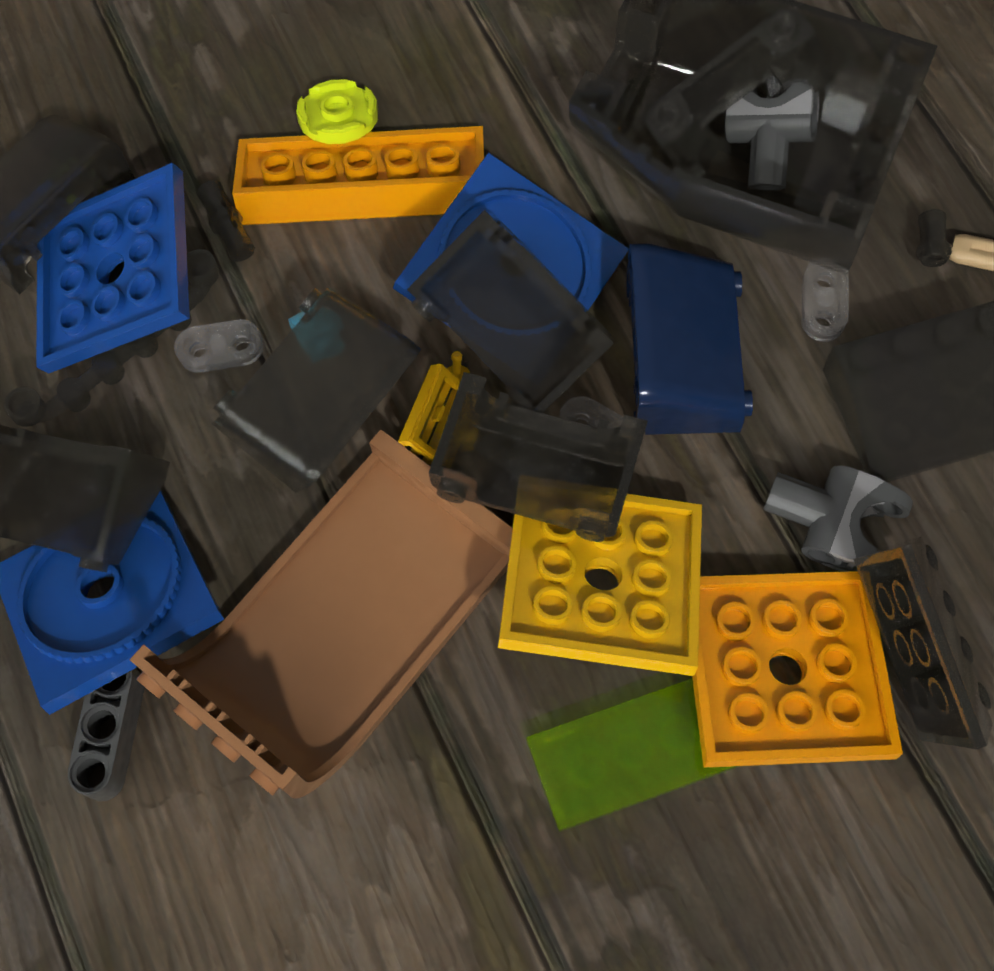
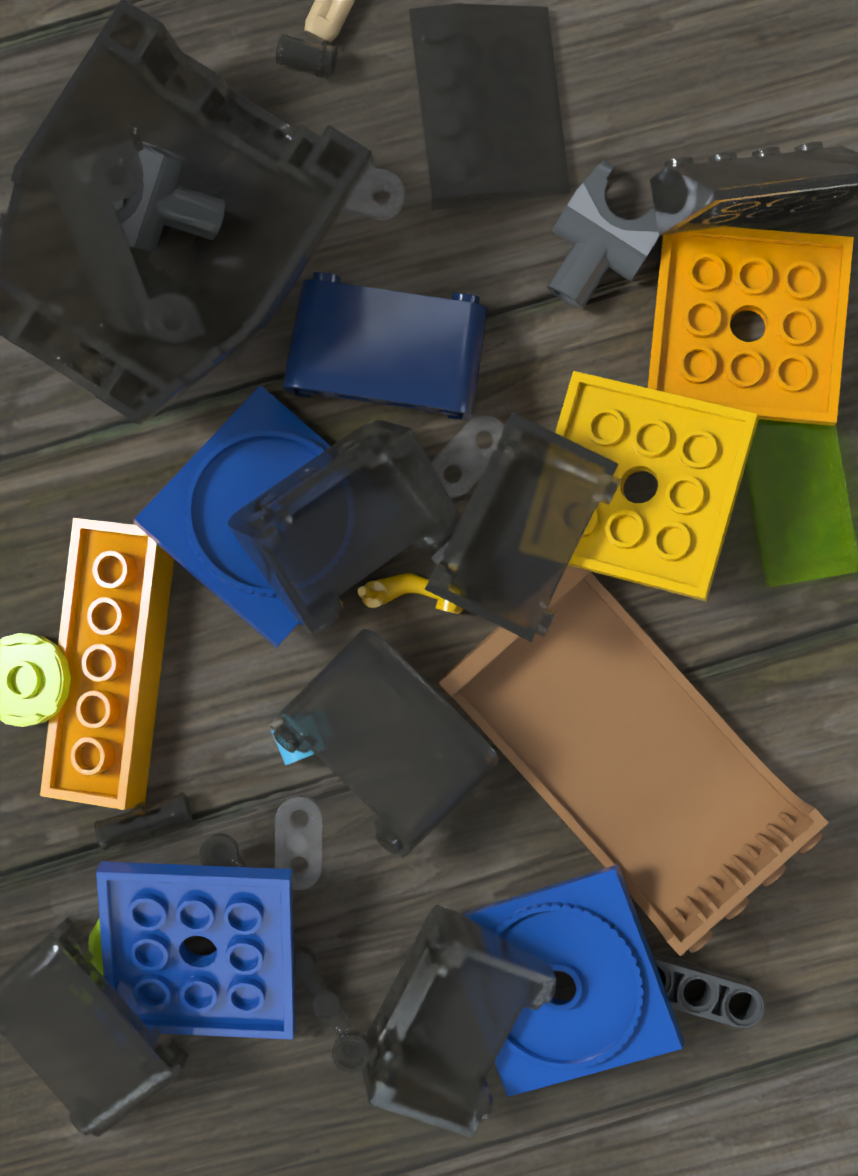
camera: 85 degrees left, 20 degrees up
(429, 410) = (428, 625): yellow tile -> none

